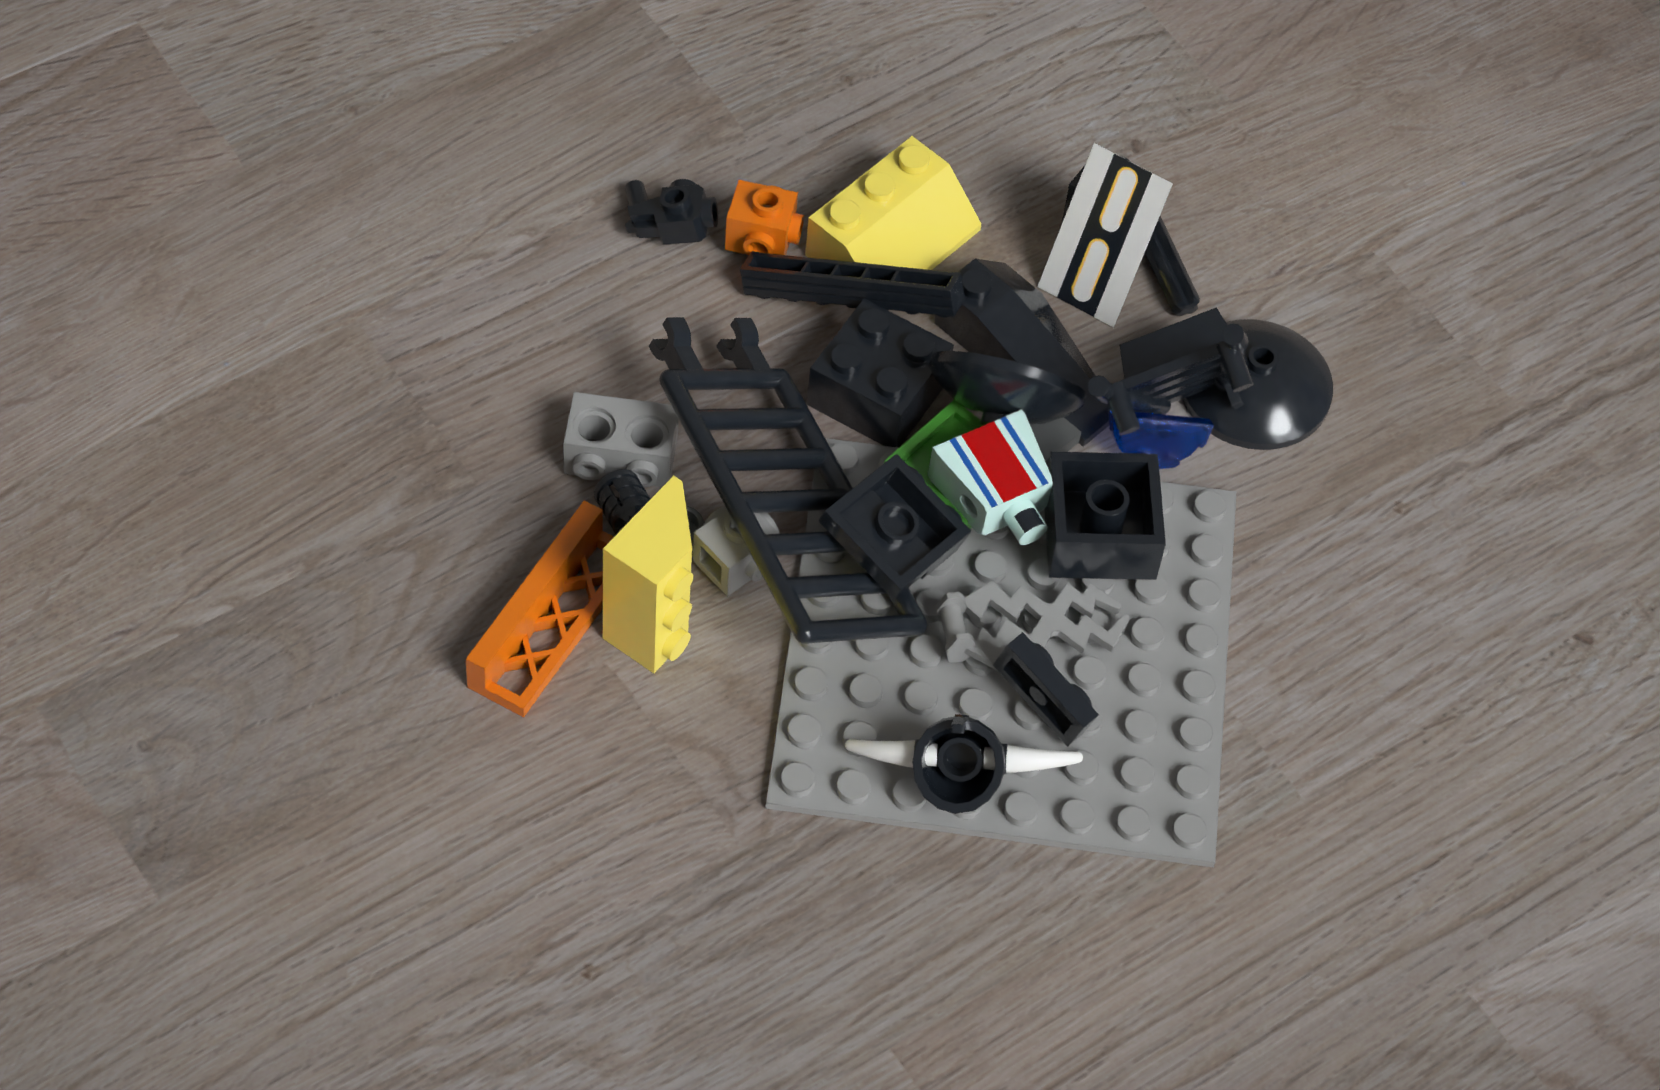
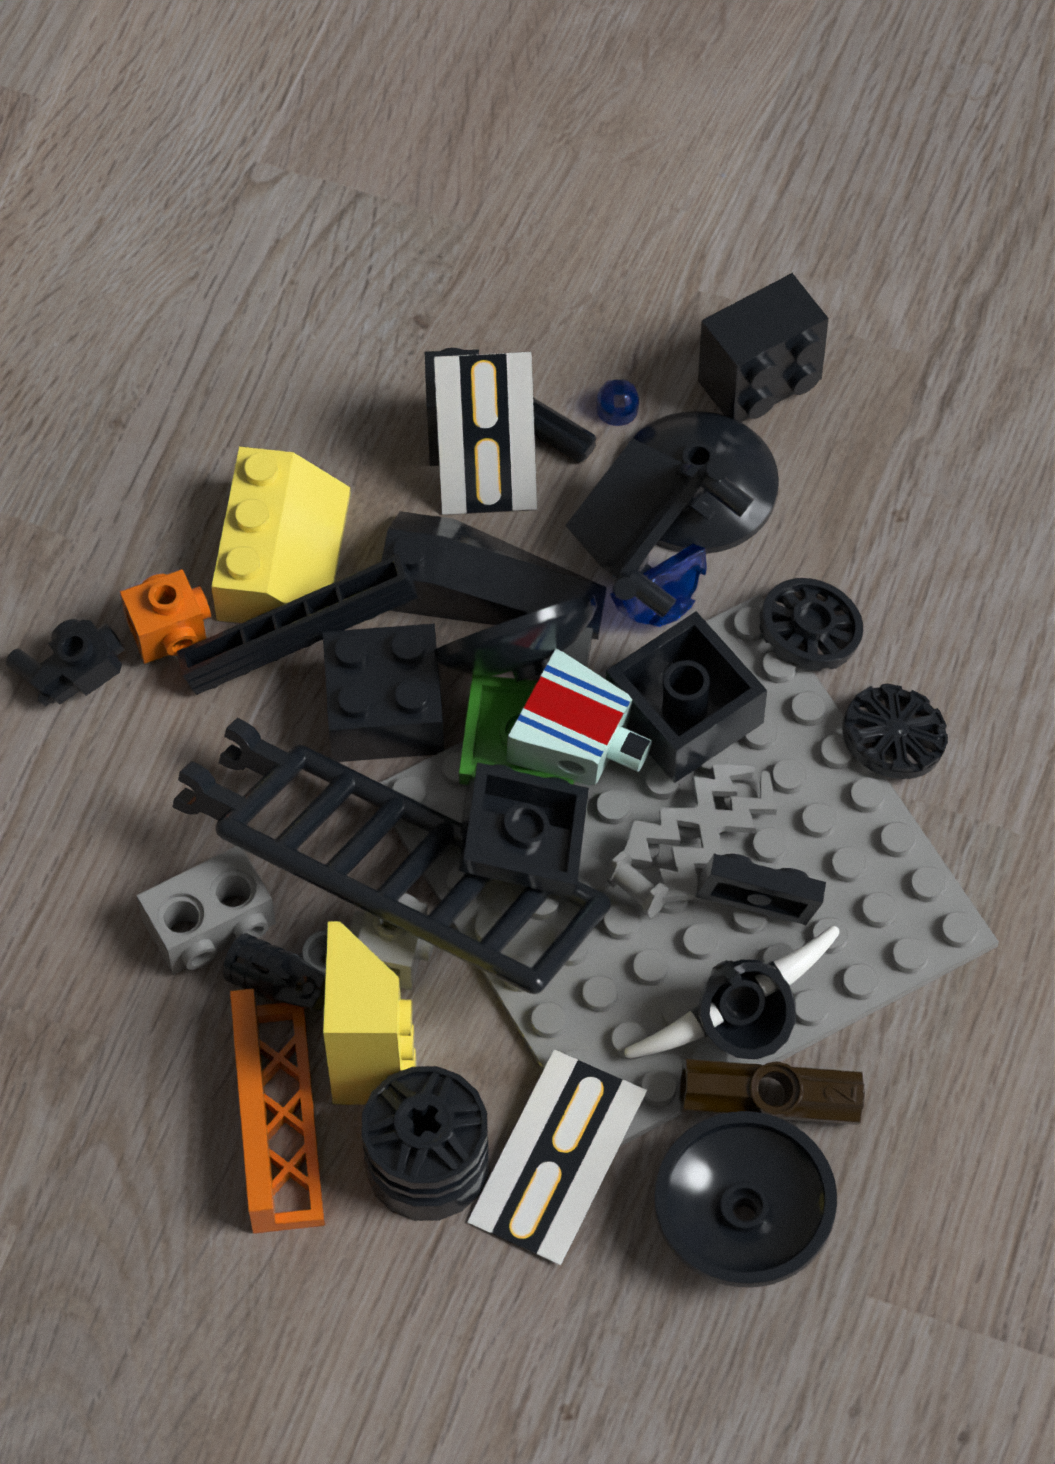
camera: 30 degrees left, 5 degrees up
(637, 701) = (429, 1173): none -> black wheel
(733, 783) = (557, 1156): none -> sticker
(852, 875) = (752, 1164): none -> black dish
(962, 869) = (809, 1092): none -> dark brown piece
(1249, 293) = (605, 402): none -> clear blue hinge
(1257, 535) = (811, 623): none -> black wheel
(1259, 655) = (894, 731): none -> black wheel
(1380, 312) = (762, 349): none -> black brick

